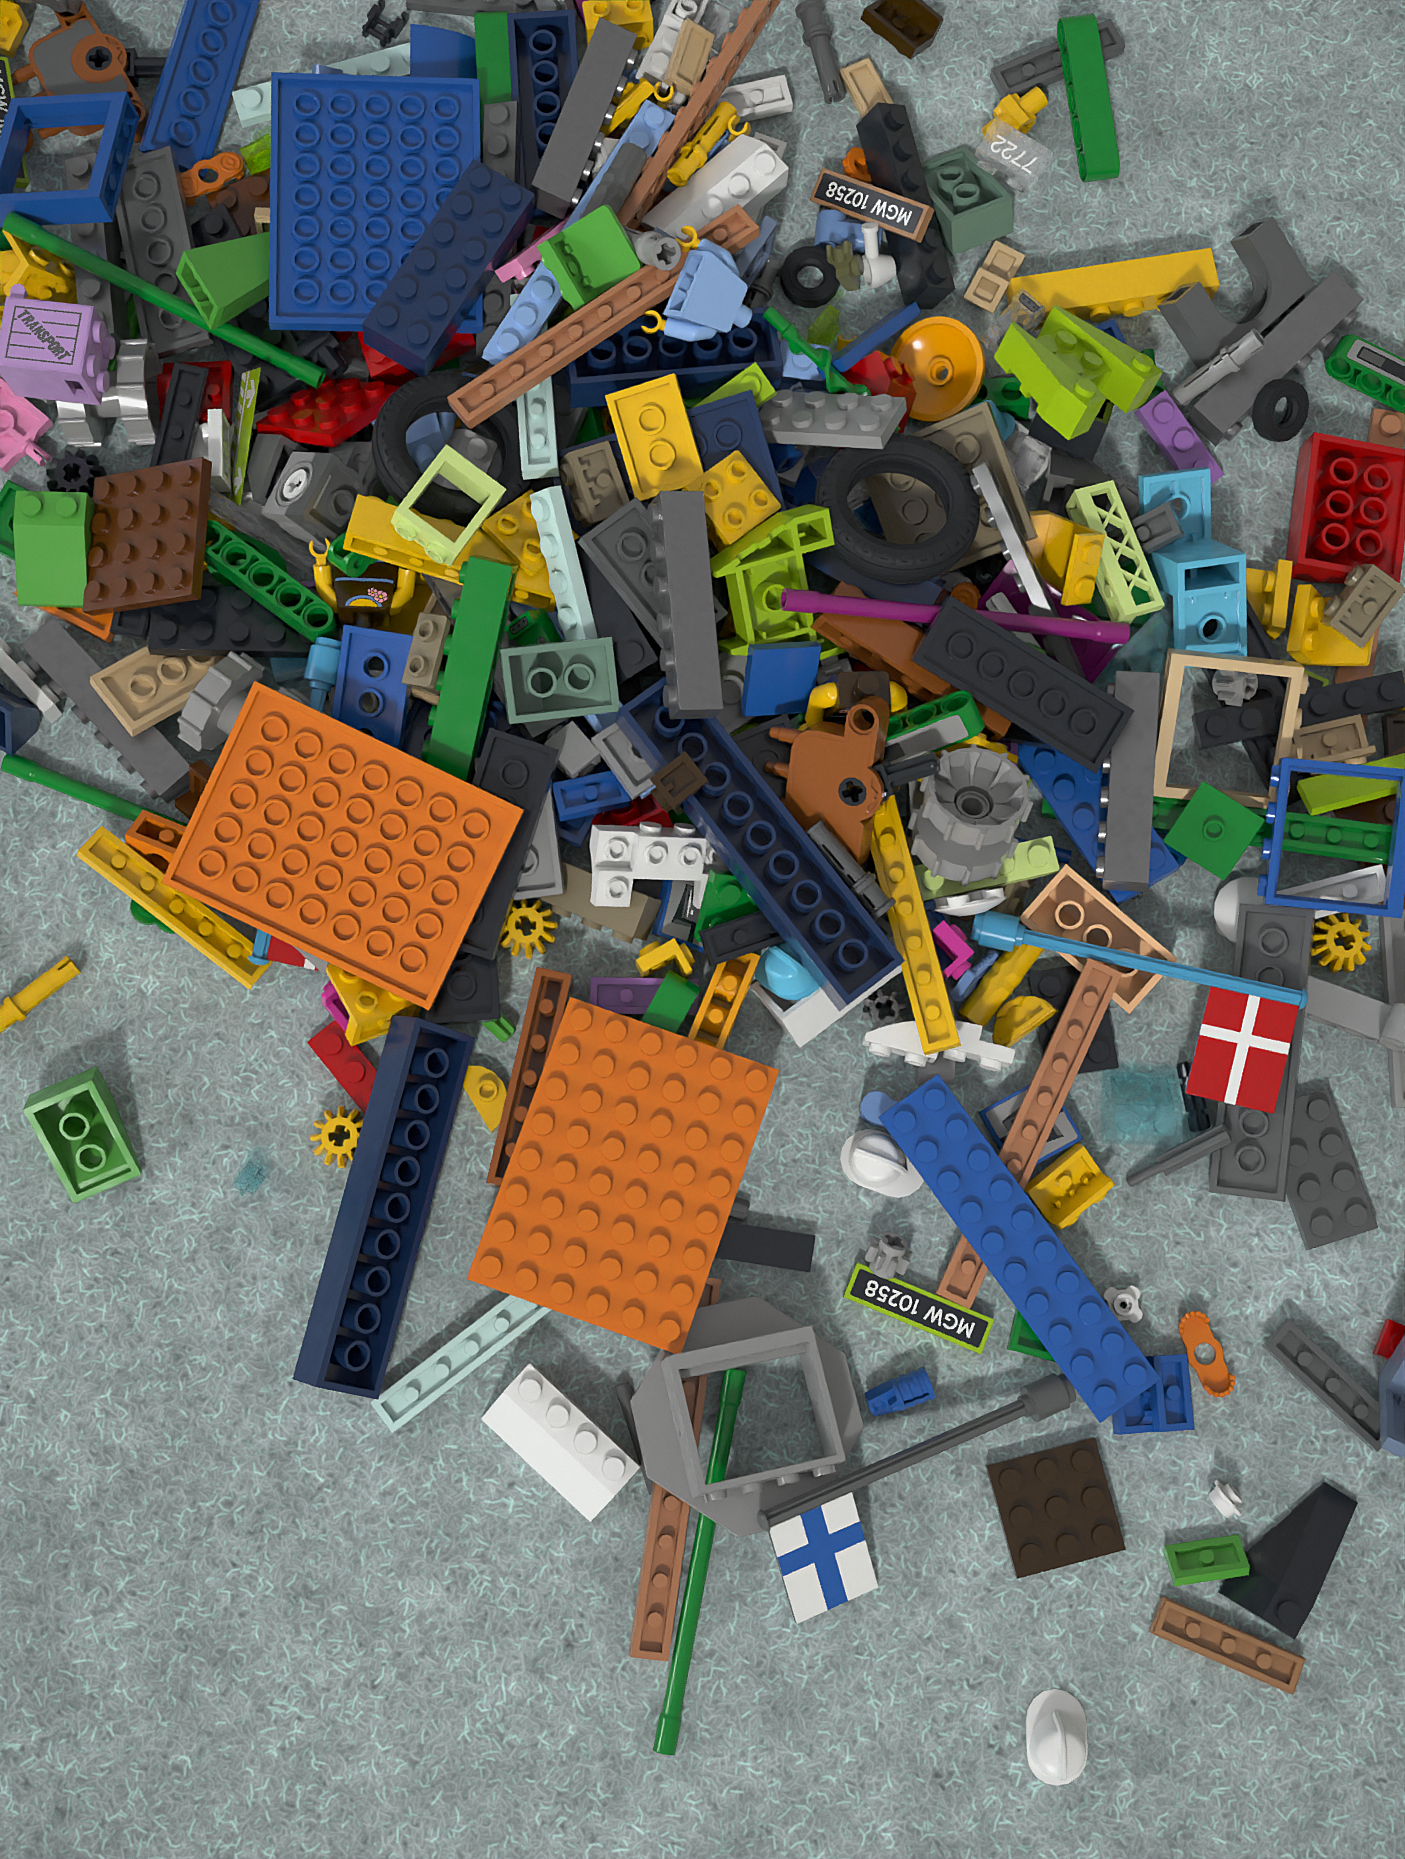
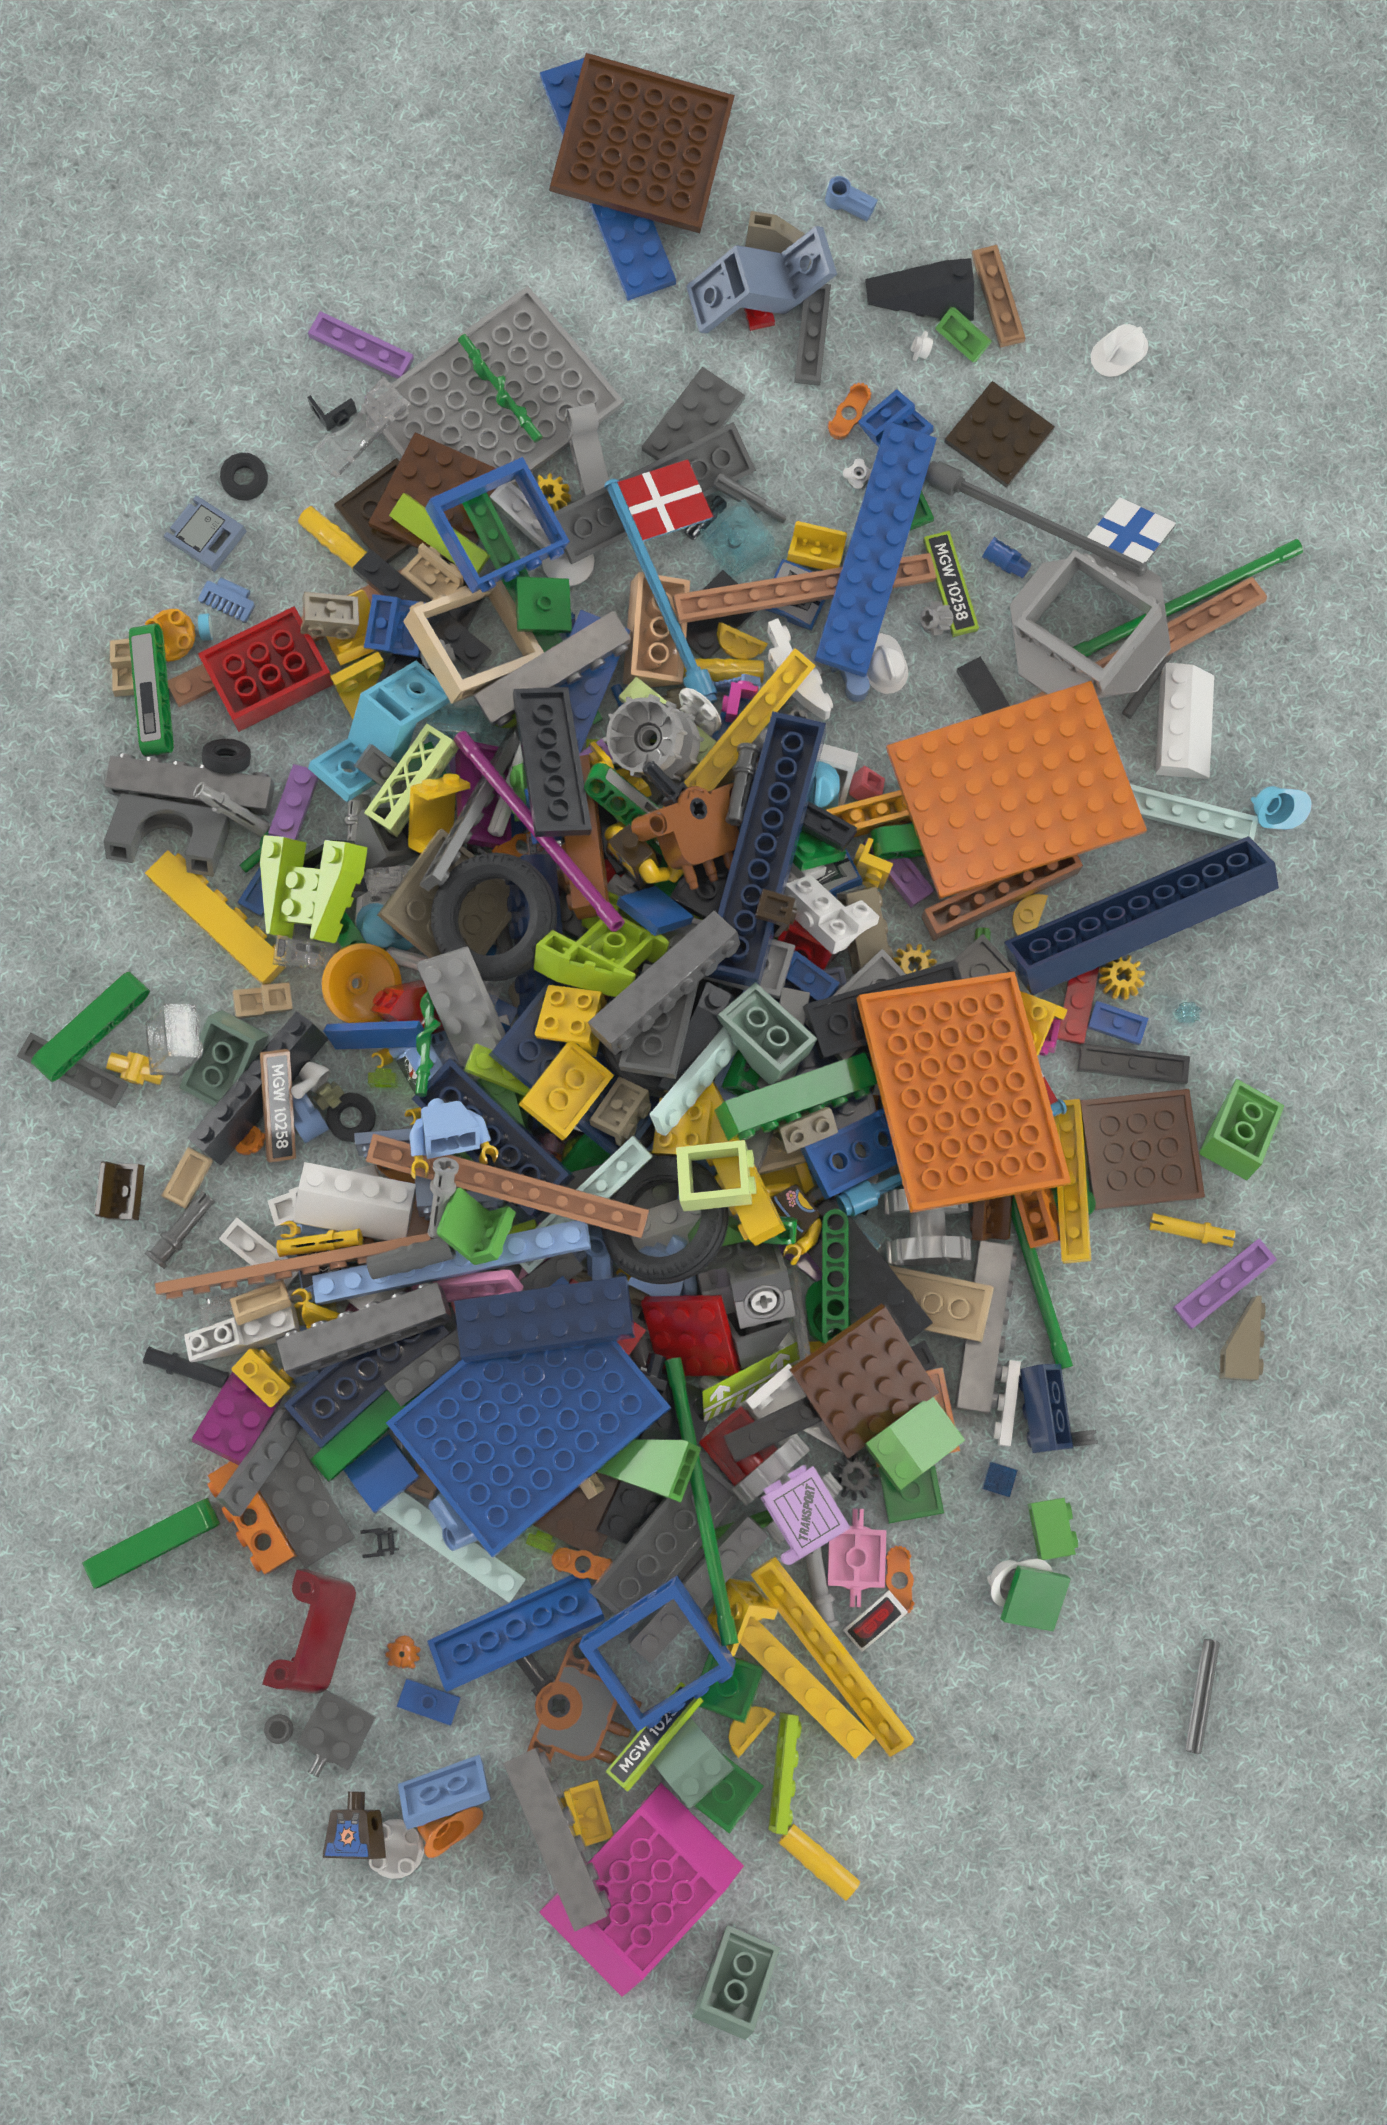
camera: 130 degrees left, 0 degrees up
(151, 1013) = (1142, 1149): none -> reddish brown plate
(244, 1079) = (1133, 1063): none -> black tile
(298, 1094) = (1117, 1023): none -> blue plate
(383, 1464) = (1281, 807): none -> medium azure piece
(758, 1034) = (866, 784): none -> coral slope
(1314, 651) = (386, 627): none -> blue slope

